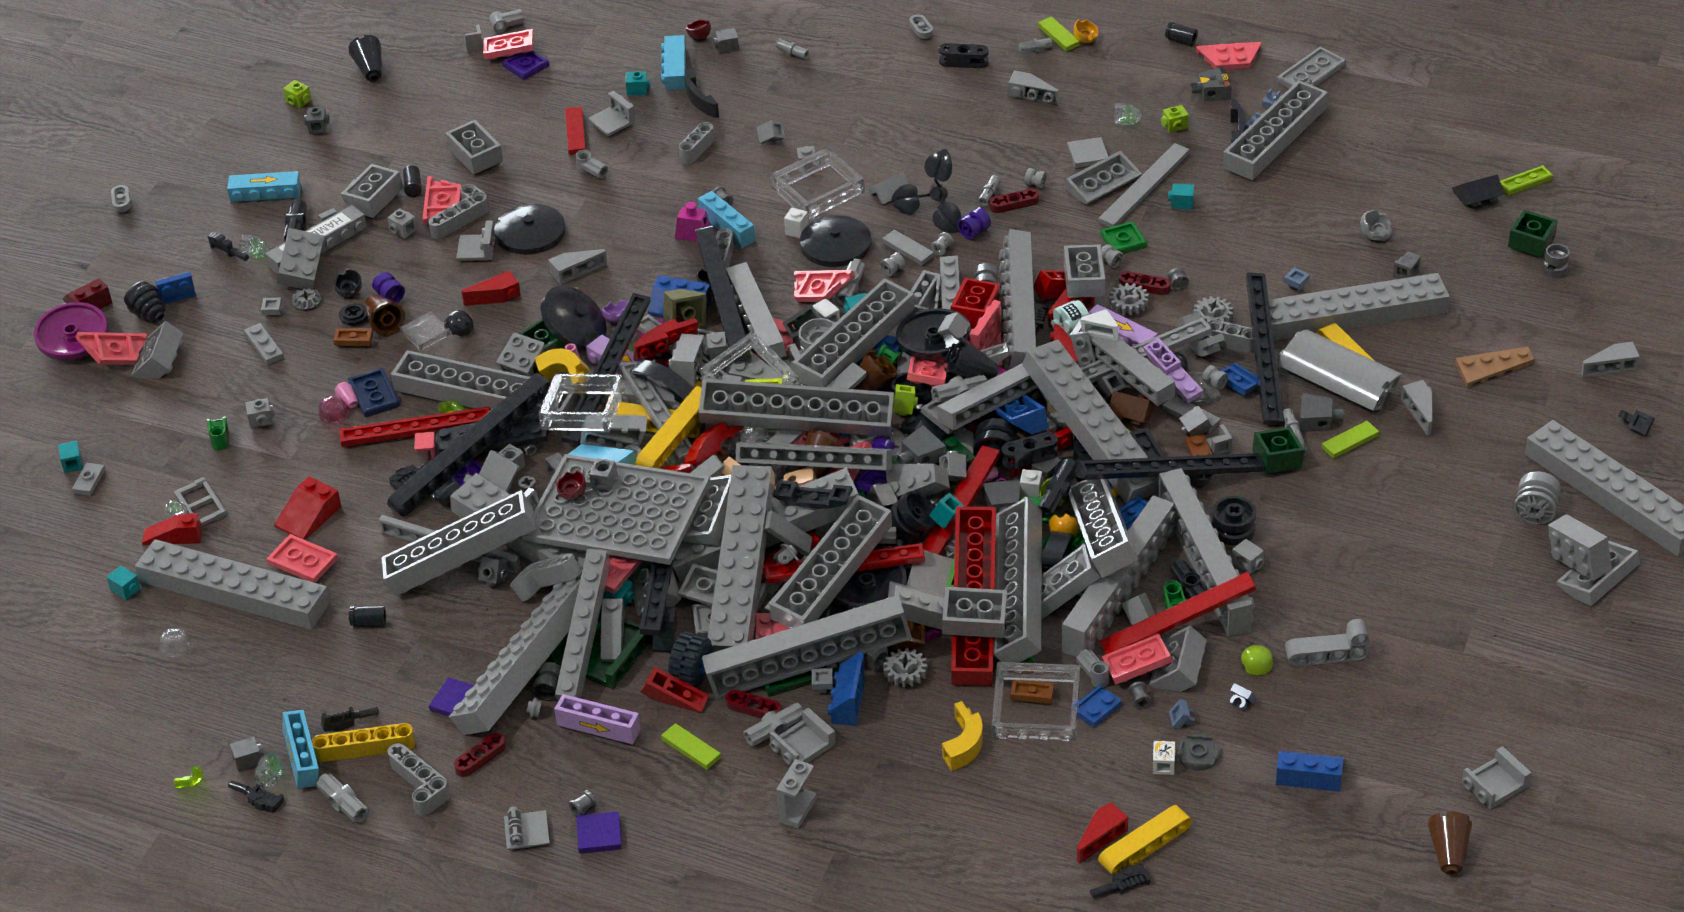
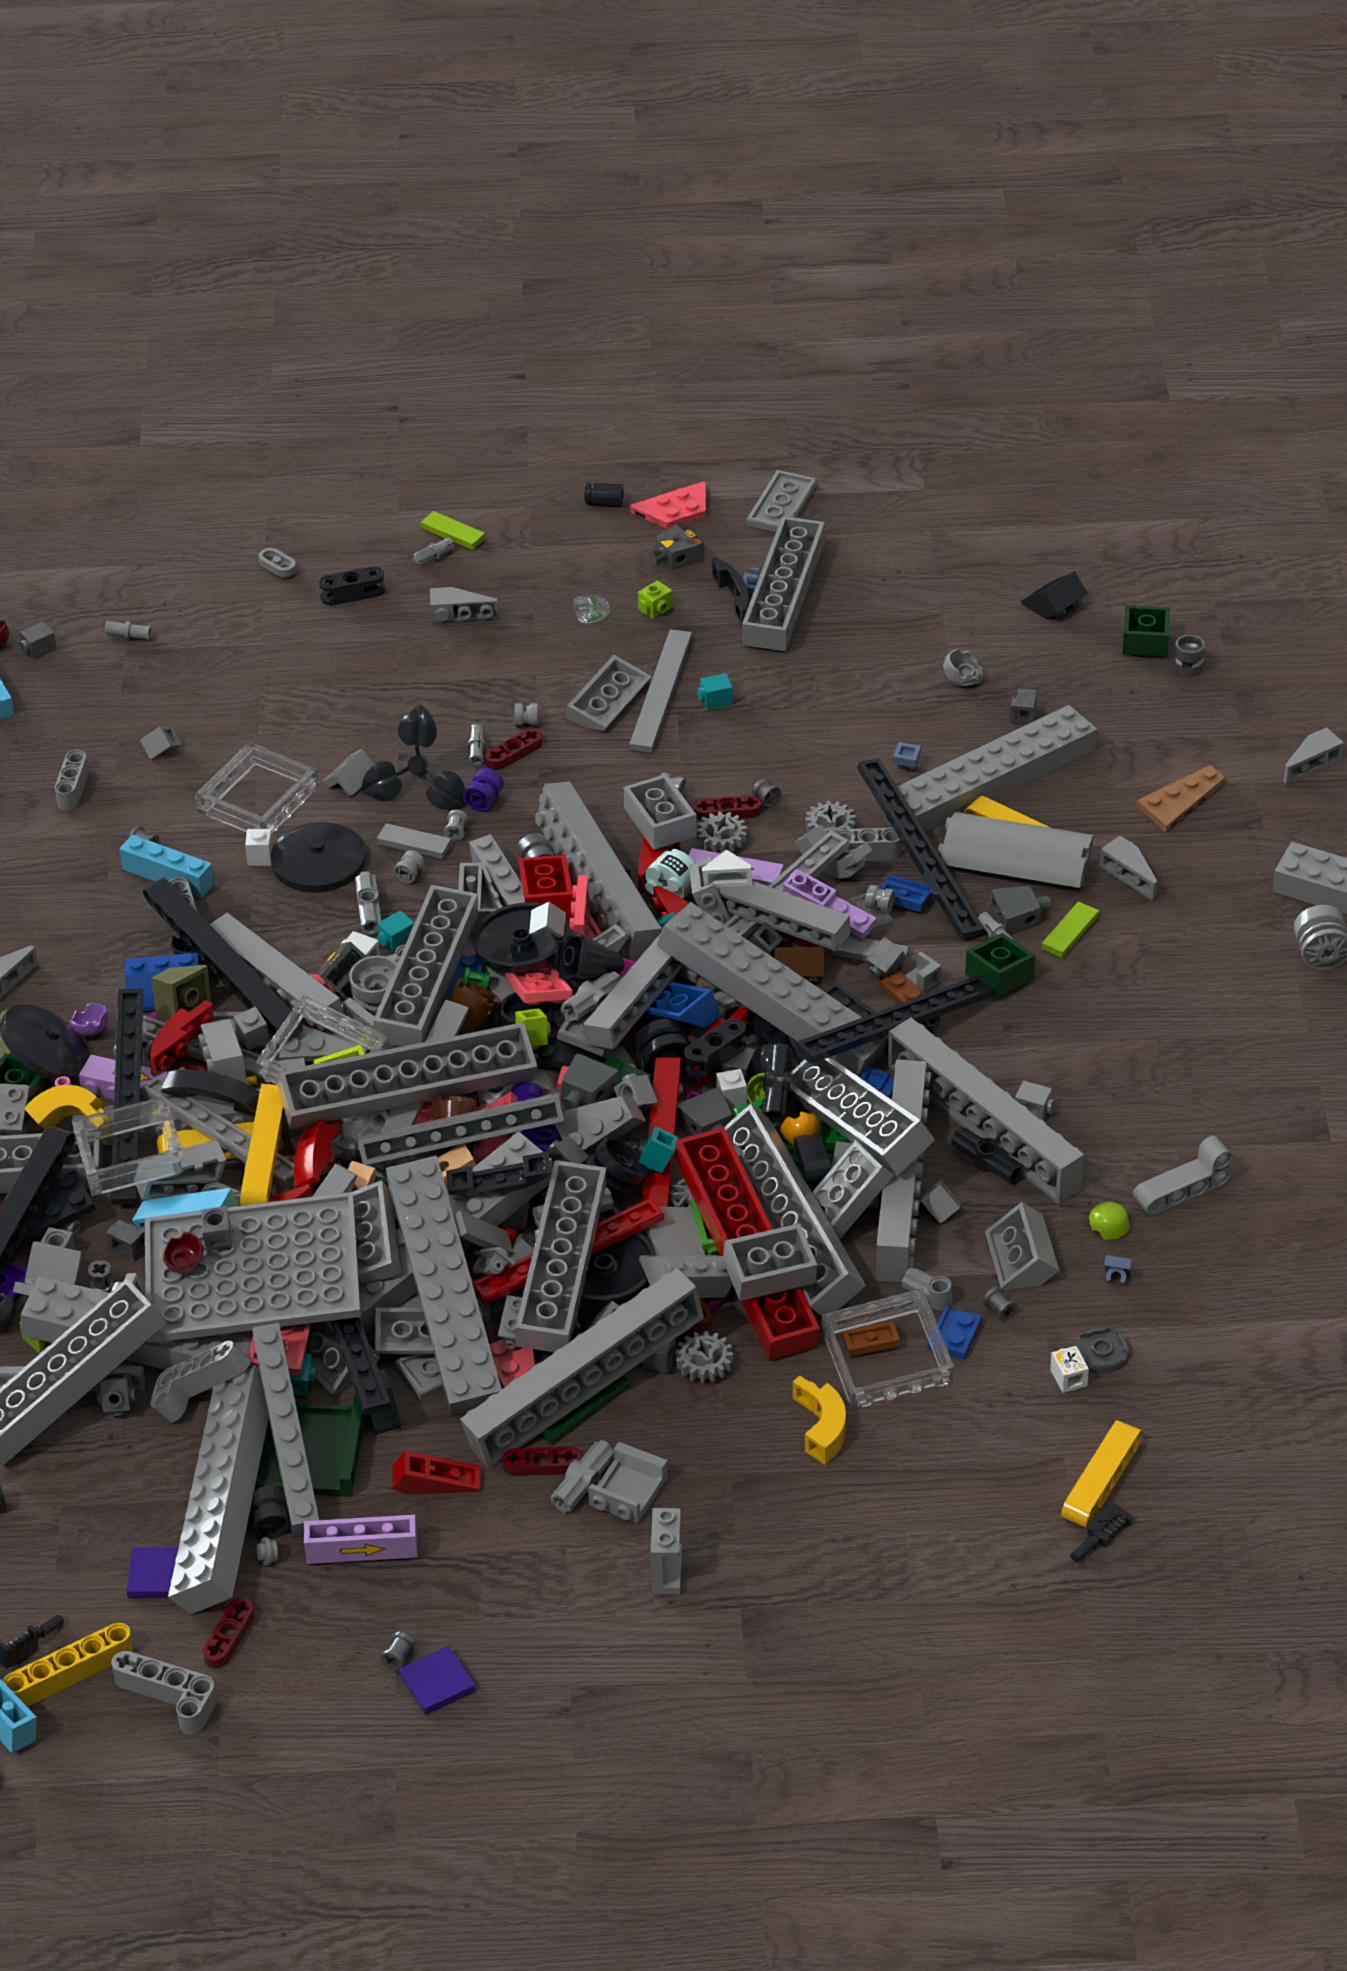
camera: 25 degrees left, 0 degrees up
(342, 797) = (80, 1745): light grey piece -> none
(525, 829) = (342, 1706): light grey hinge -> none
(612, 629) = (316, 1422): light grey slope -> none
(687, 660) = (440, 1426): black wheel -> none
(689, 220) = (126, 882): dark pink torso -> none
(691, 746) = (492, 1536): lime tile -> none
(705, 104) = (56, 728): black slope -> none
(804, 152) = (218, 758): light grey plate -> none
(818, 285) = (334, 916): coral wing -> none
(822, 680) = (612, 1403): light grey tile -> none
(848, 691) = (653, 1406): blue slope -> none
(1050, 284) = (623, 837): red slope -> none
(1085, 31) = (487, 519): light orange hair -> none
(1087, 152) = (570, 667): light grey tile -> none
(1104, 827) = (1048, 1472): red slope -> none
(1124, 237) = (671, 758): green tile -> none
(1137, 659) = (977, 1260): coral plate -> none
(1172, 594) = (977, 1178): green piece -> none
(1181, 613) = (1000, 1194): red tile -> none
(1181, 714) = (1059, 1311): sand blue tile -> none
(1234, 519) = (997, 1058): black wheel -> none
(1270, 98) = (757, 548): sand blue tile -> none
(1309, 770) = (1241, 1331): blue slope -> none
(1526, 180) = (1101, 569): lime tile -> none

